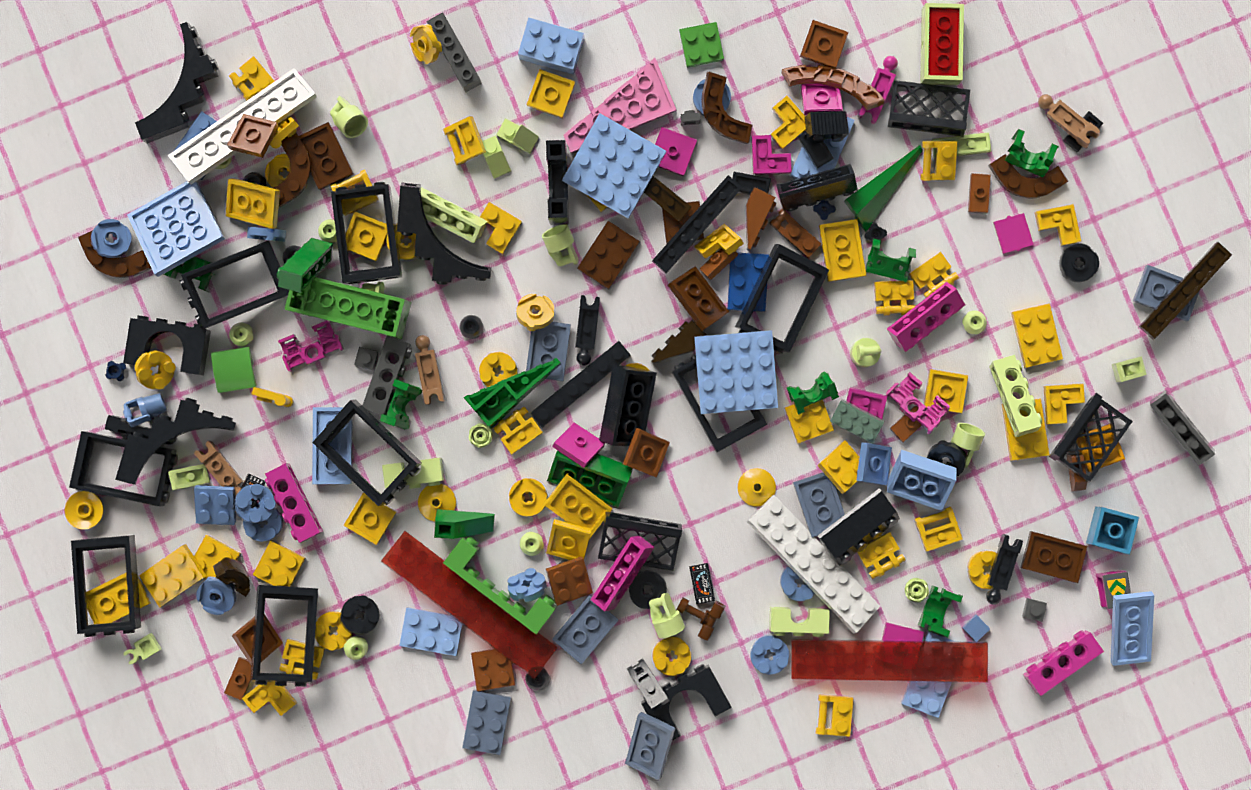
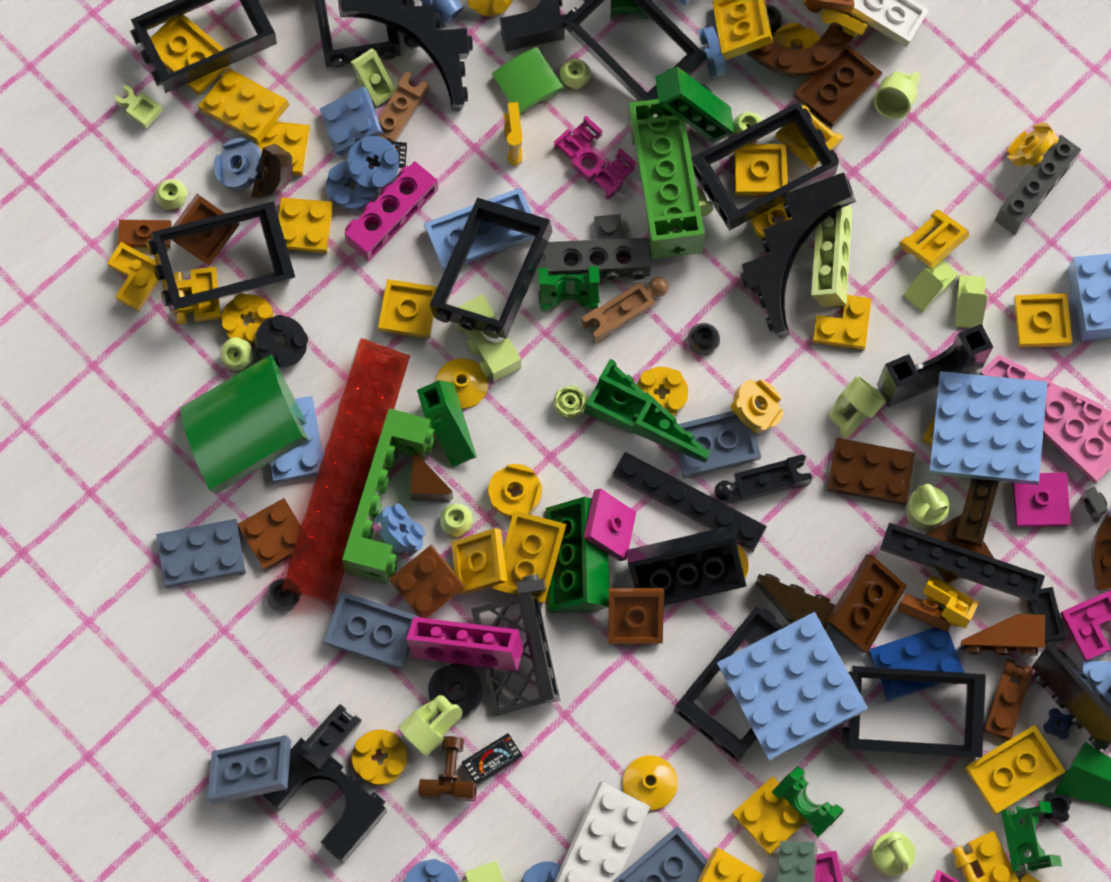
camera: 65 degrees right, 15 degrees down
(223, 645) = (174, 201): none -> yellowish green plate
(411, 664) = (243, 424): none -> green slope
(499, 555) = (427, 484): none -> reddish brown slope
(520, 435) = (591, 451): yellow plate -> none
(599, 513) = (531, 584): none -> dark grey plate
(649, 229) = (927, 508): none -> yellowish green piece

